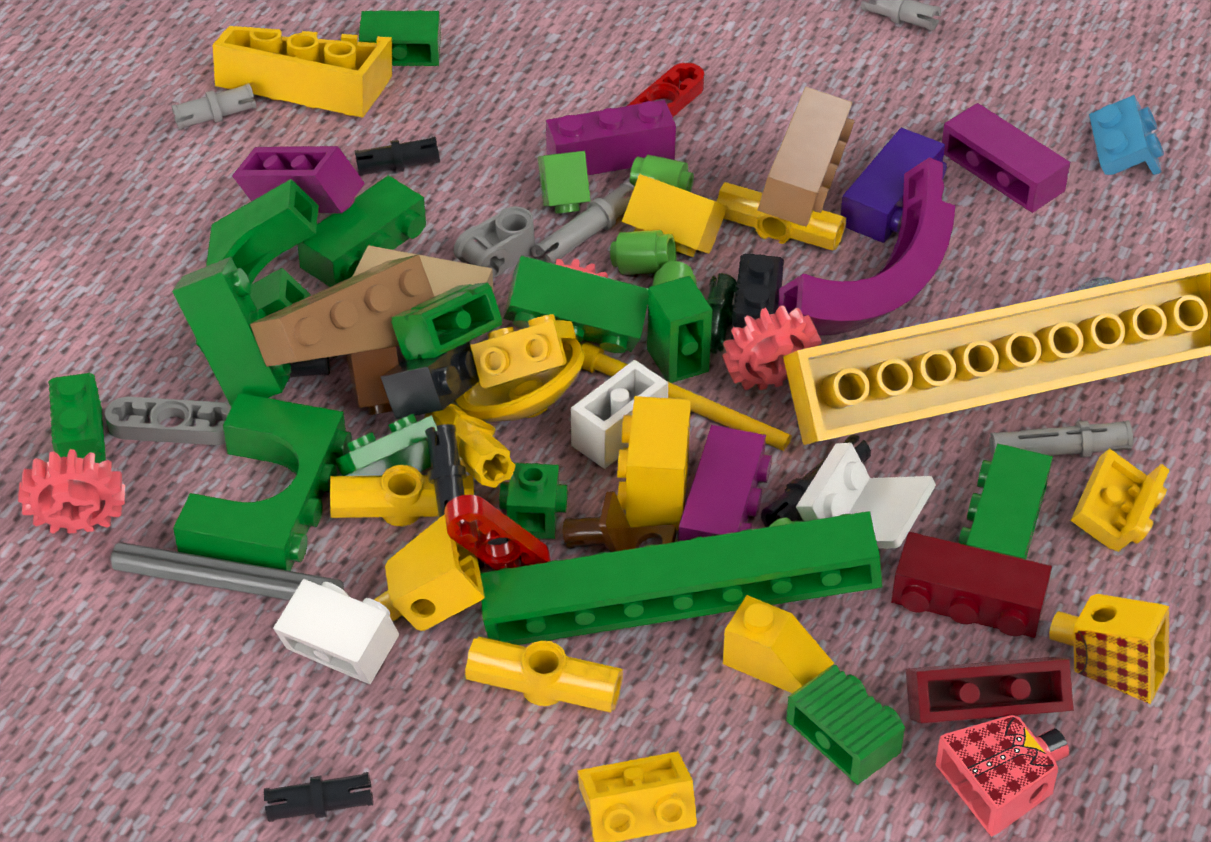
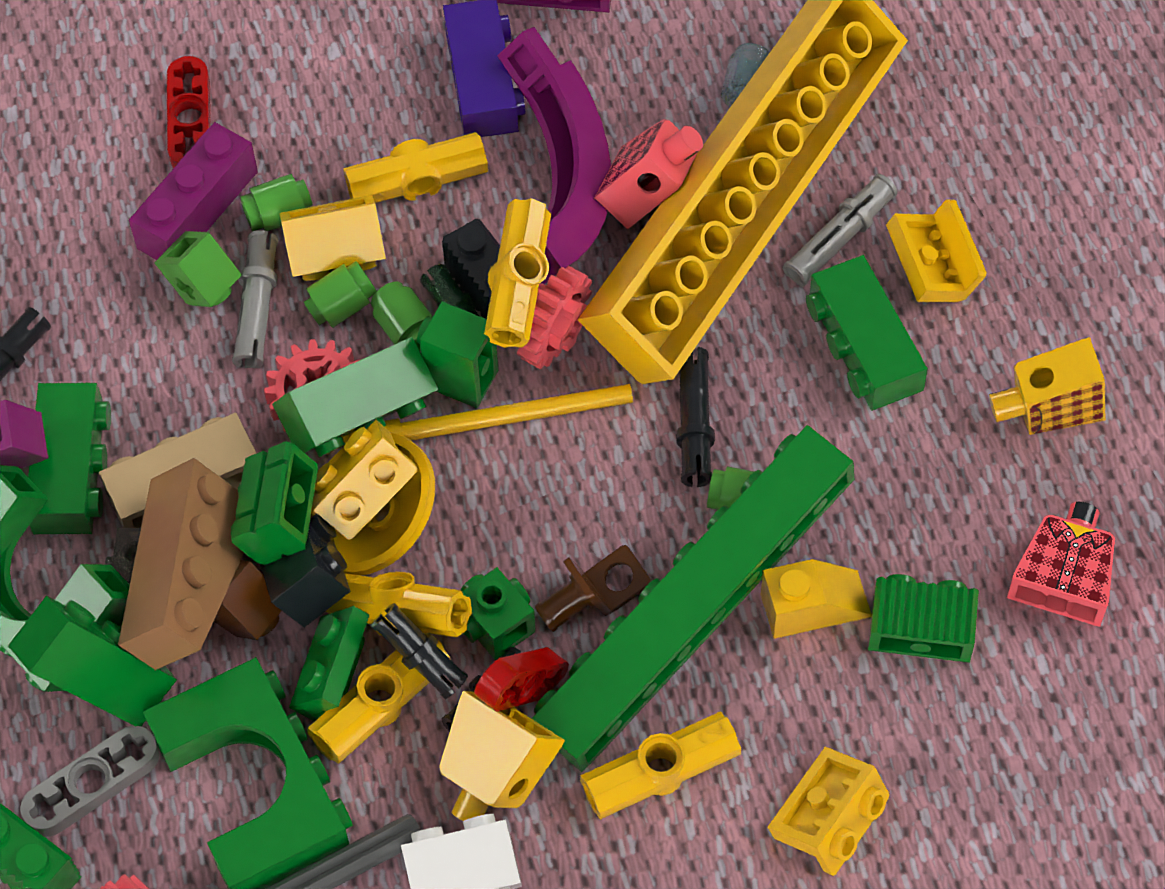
camera: 40 degrees left, 15 degrees up
(499, 240) = (199, 386): light grey piece -> none
(599, 415) = (485, 475): white brick -> none
(654, 461) = (569, 500): yellow brick -> none
(726, 484) = (638, 485): magenta brick -> none
(738, 295) = (514, 295): none -> yellow piece
(807, 157) = (410, 102): wedge -> none
(846, 488) = (760, 407): white bracket -> none
(951, 294) = (662, 156): none -> coral torso
(971, 585) = (903, 418): dark red brick -> none
(989, 689) = (1003, 506): dark red brick -> none

